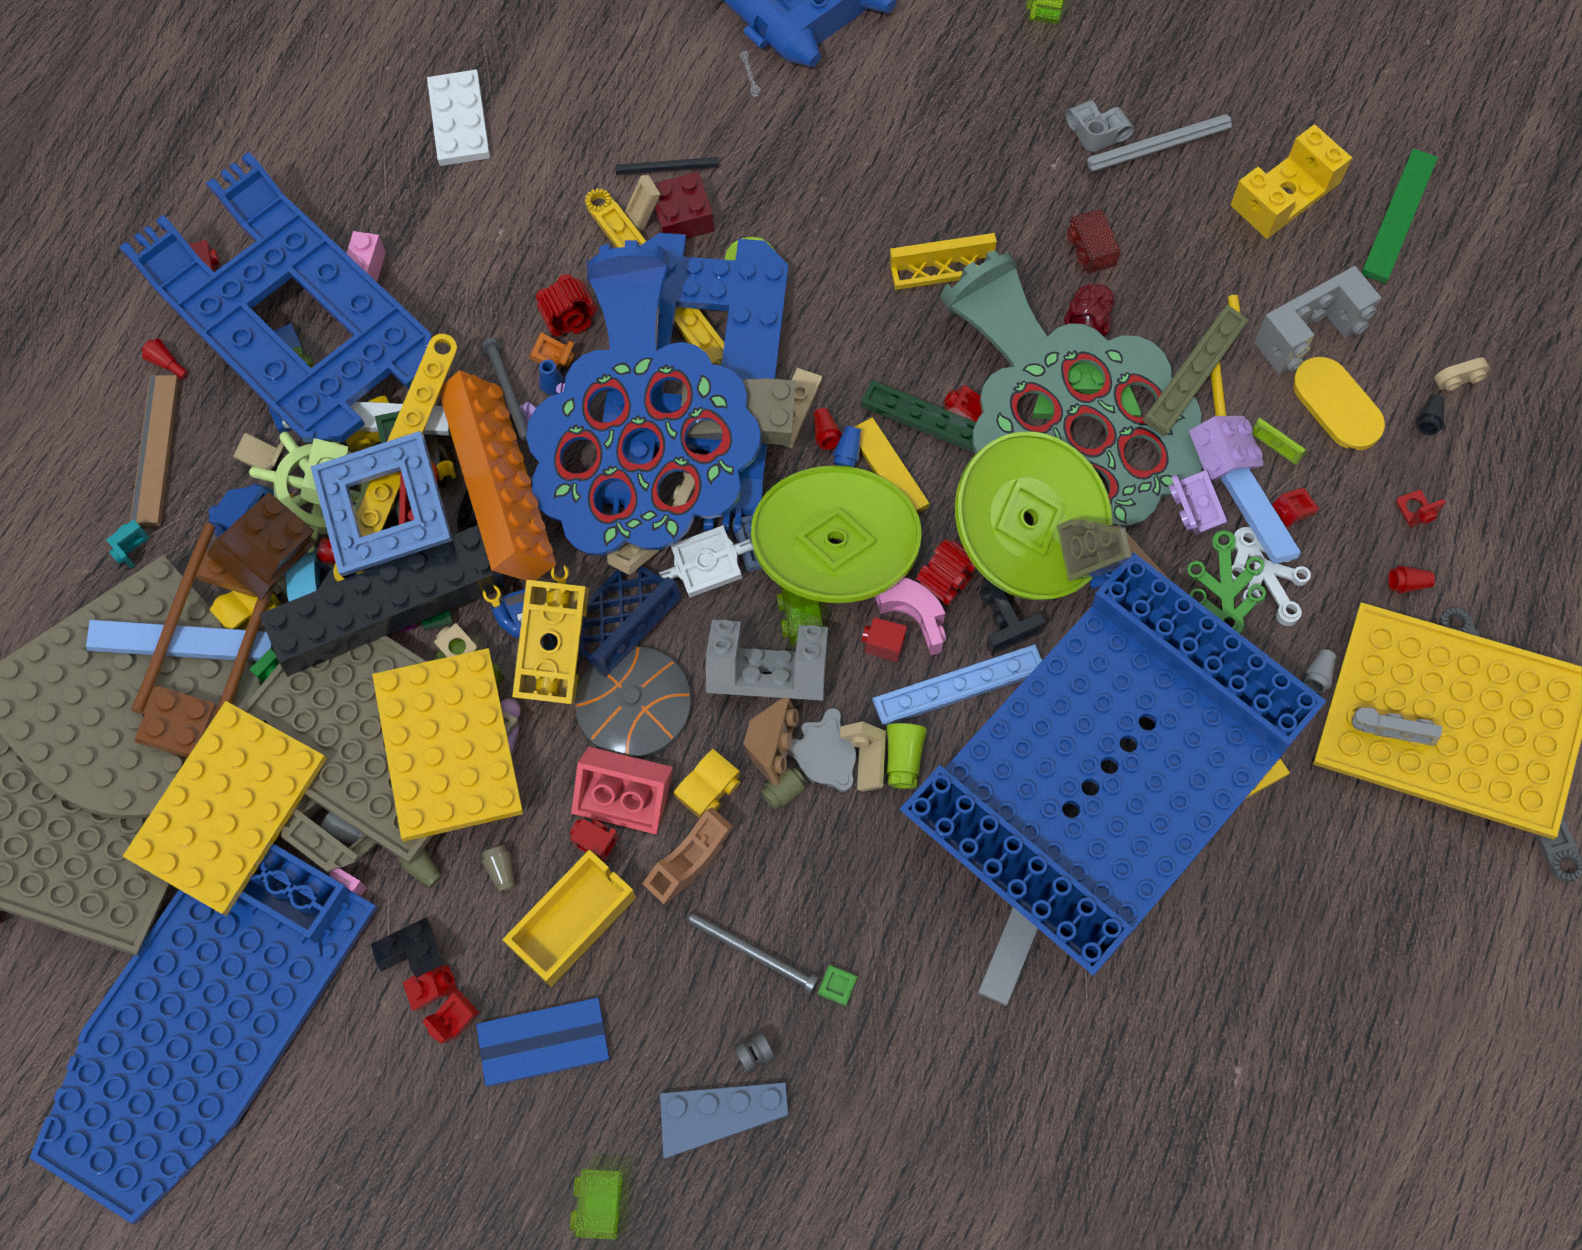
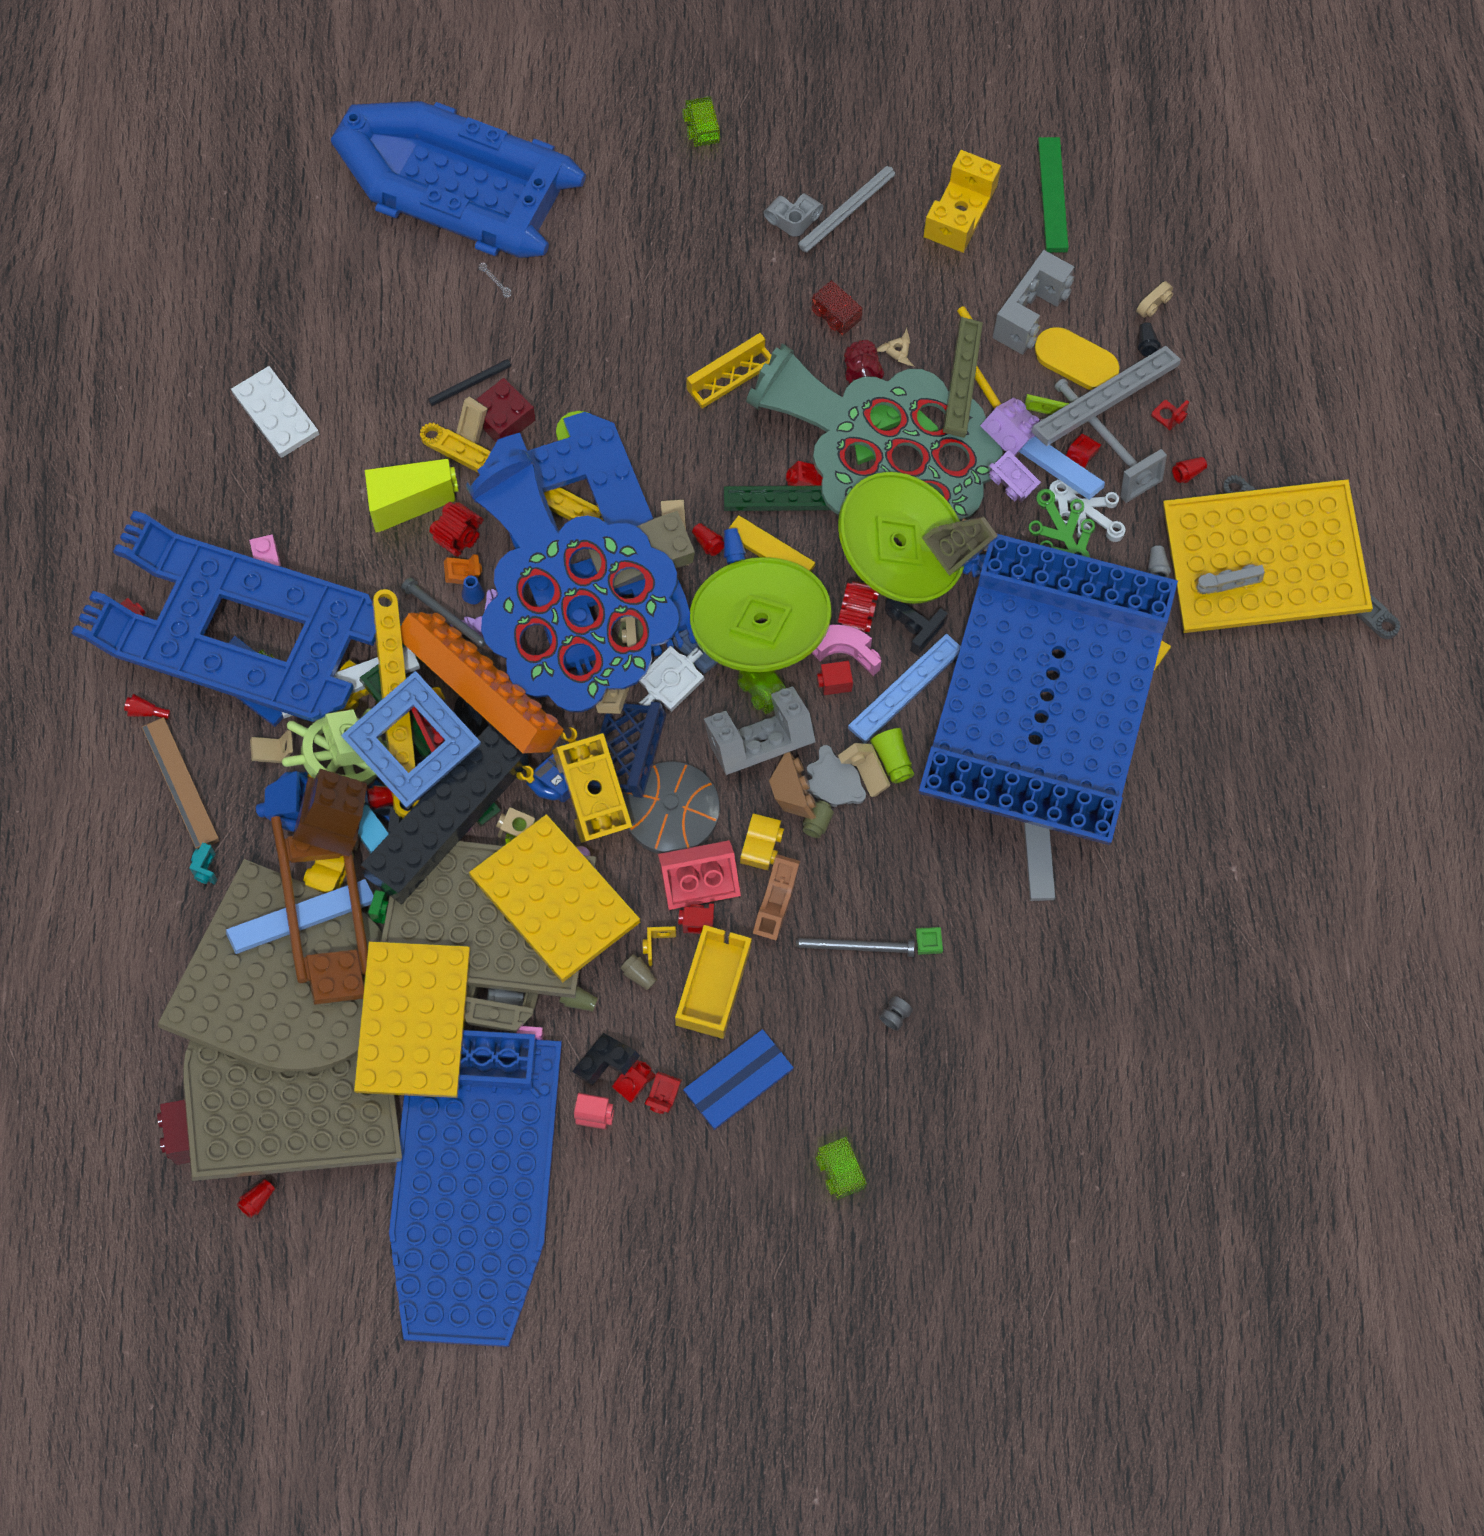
camera: 30 degrees left, 0 degrees up
(361, 1002) = (593, 1111): none -> coral brick
(526, 841) = (653, 932): none -> yellow bracket
(536, 247) = (408, 491): none -> neon yellow slope
(715, 1114) = (888, 1070): sand blue wing -> none
(1140, 320) = (901, 355): none -> tan piece
(1346, 562) = (1140, 475): none -> light grey tile
(1350, 456) = (1105, 396): none -> light grey plate

